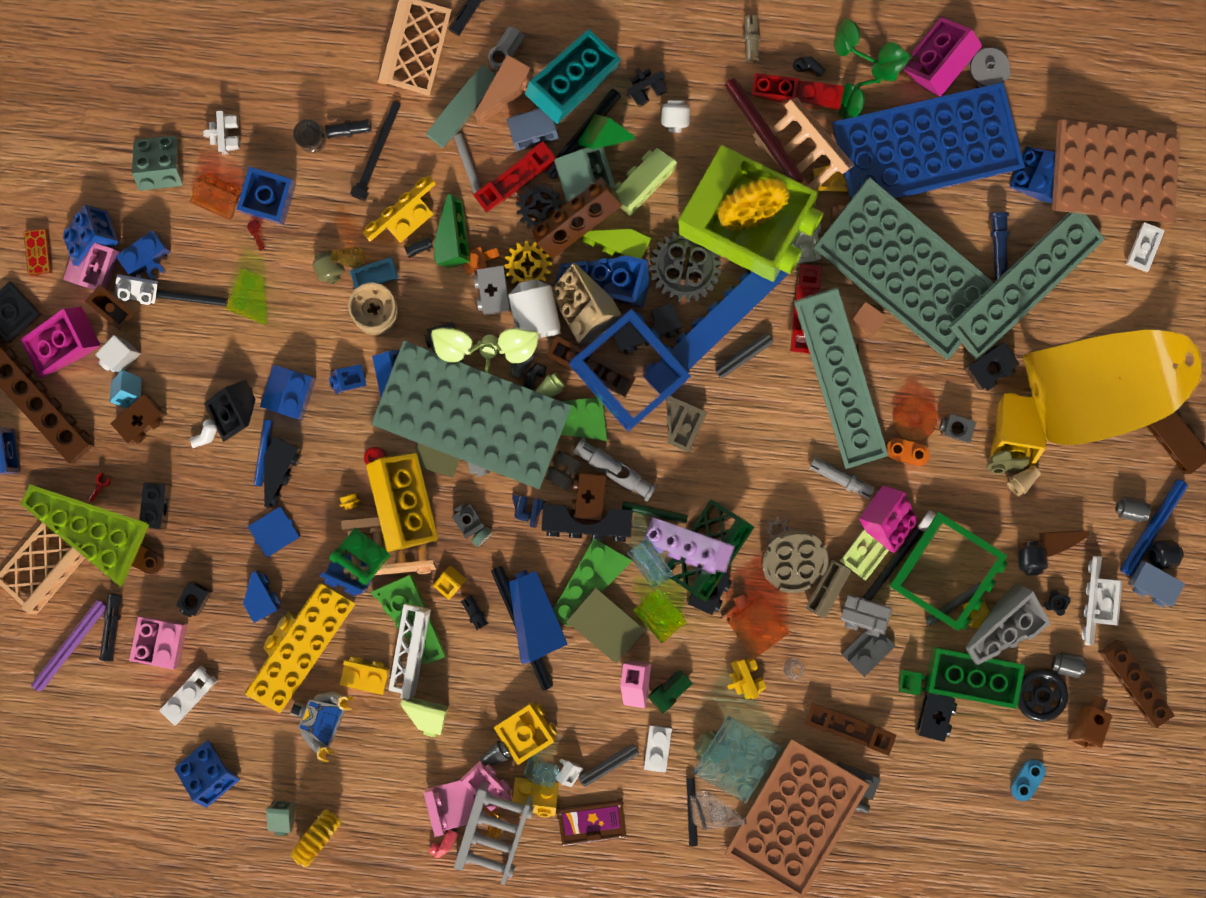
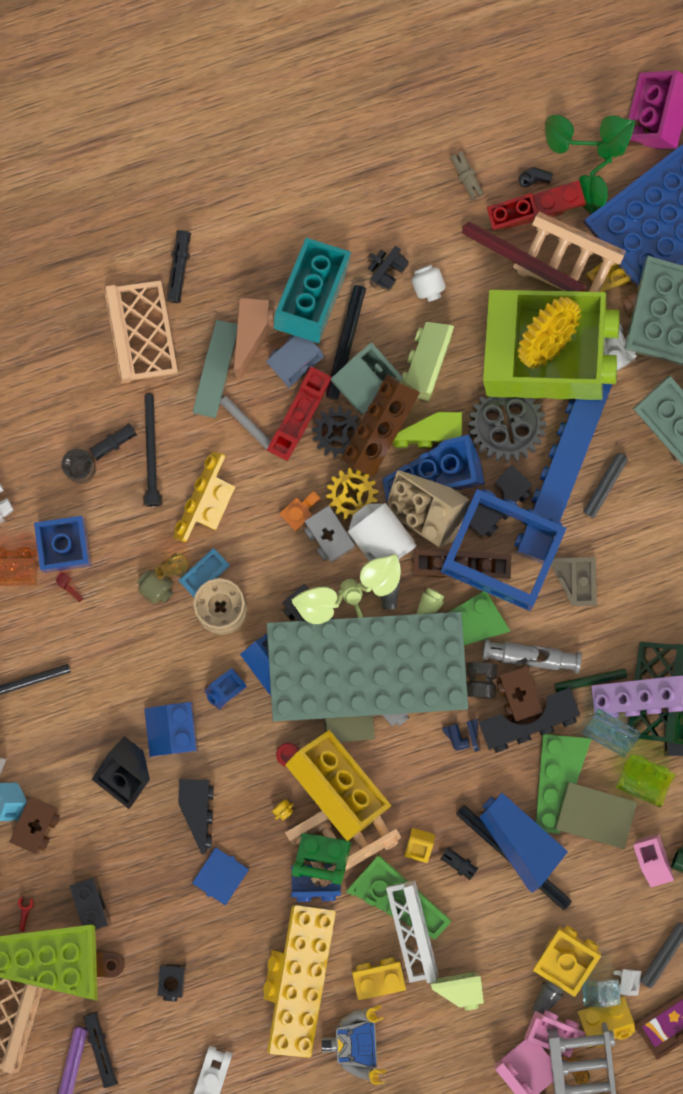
camera: 25 degrees left, 5 degrees down
(158, 642) = (156, 1041): bright pink slope -> none
(207, 434) = (110, 809): white arm -> none
(248, 297) = (89, 653): clear neon green wing -> none
(259, 599) = (237, 950): blue slope -> none
(264, 444) = (173, 801): blue bar -> none
(418, 246) = (235, 525): black pin -> none
(451, 237) = (264, 501): green slope -> none
(476, 522) = (416, 781): dark grey brick -> none
(482, 536) = (431, 784): sand green tile -> none
(506, 46) = (232, 292): light grey piece -> none
(530, 377) = (405, 601): black arm -> none
(604, 132) = (368, 330): green slope -> none
(807, 284) = (635, 389): red slope -> none

